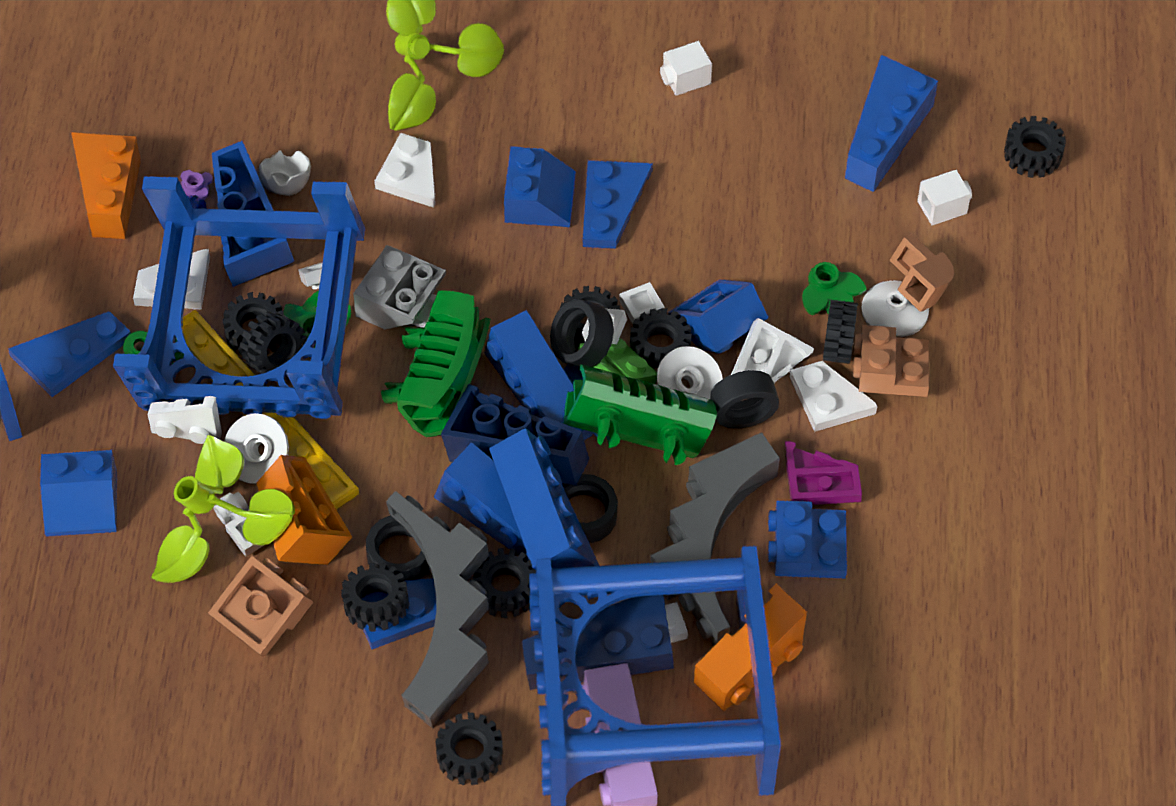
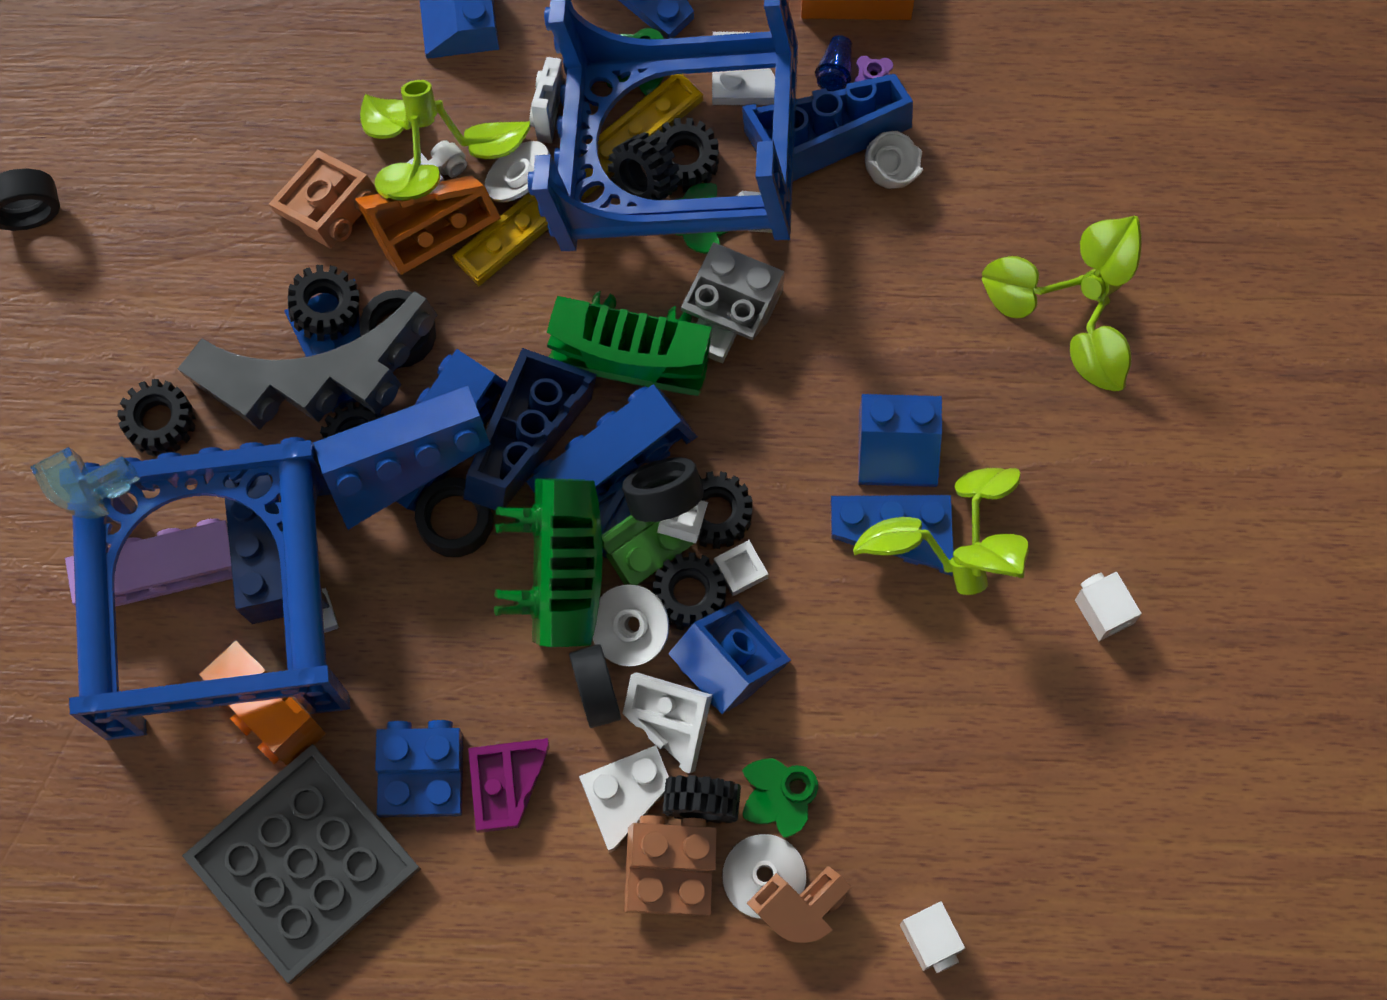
camera: 90 degrees right, 15 degrees up
(408, 171) = (920, 297): white wing -> none
(576, 733) = (77, 491): none -> clear light blue brick
(630, 185) = (995, 554): none -> lime plant
(716, 490) = (427, 641): dark grey arch -> none
(889, 628) = (301, 863): none -> dark grey plate
(890, 117) = (1051, 862): blue wedge -> none

